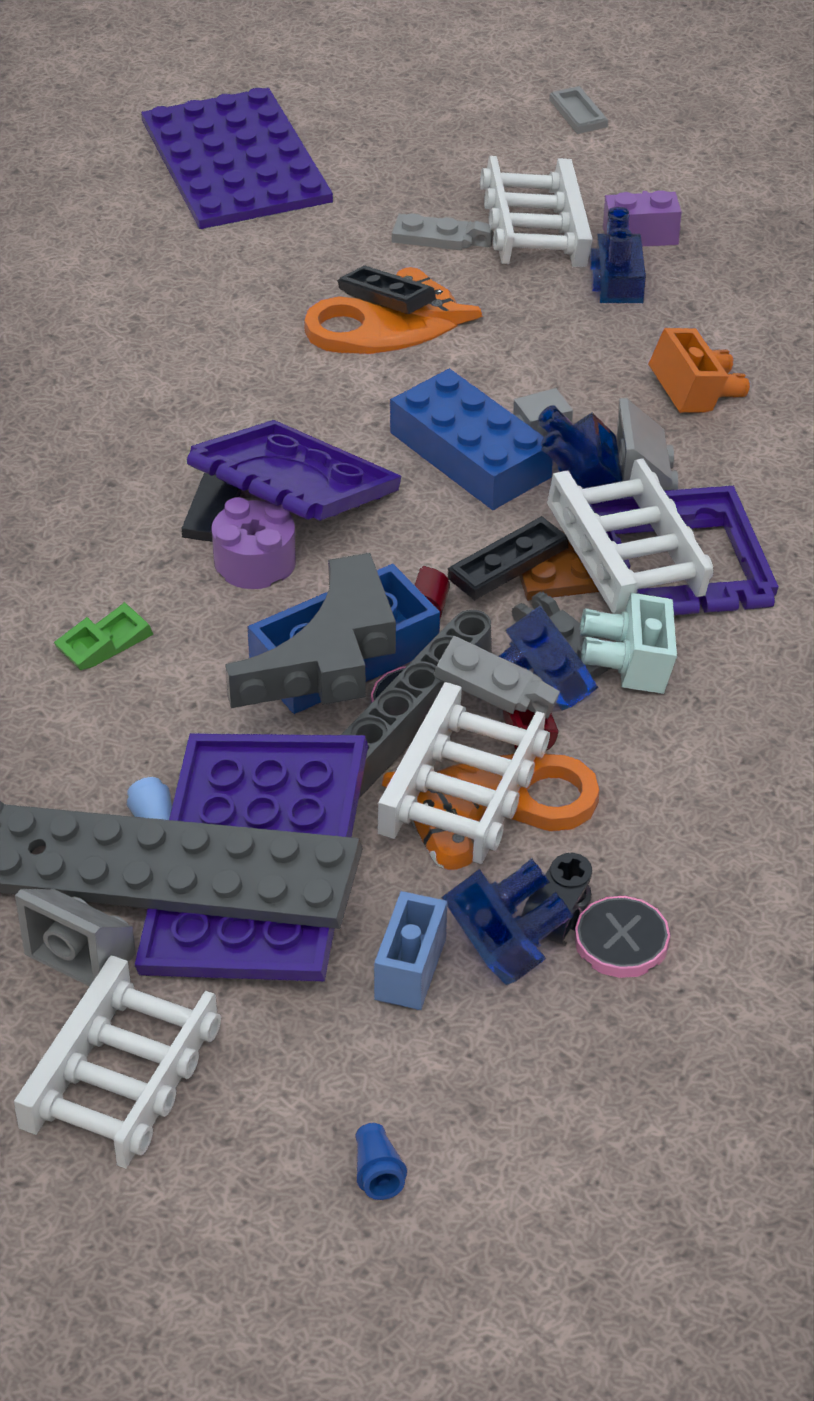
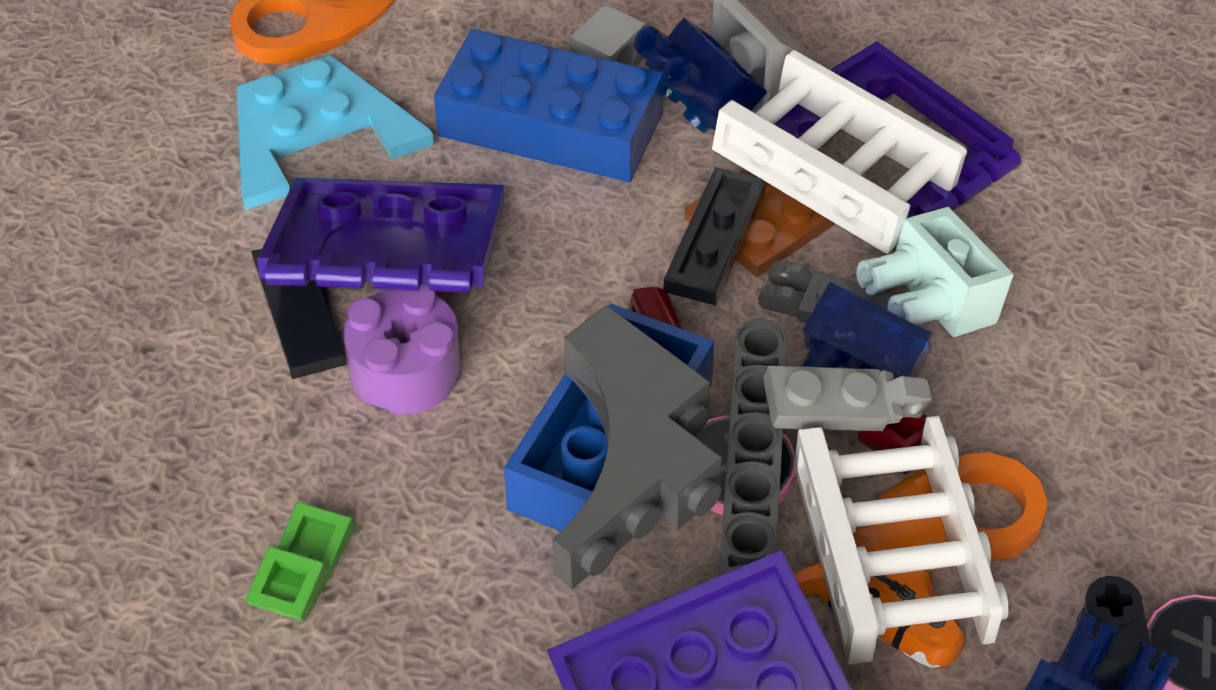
camera: 30 degrees left, 5 degrees up
(314, 382) = (308, 108): none -> medium azure wing

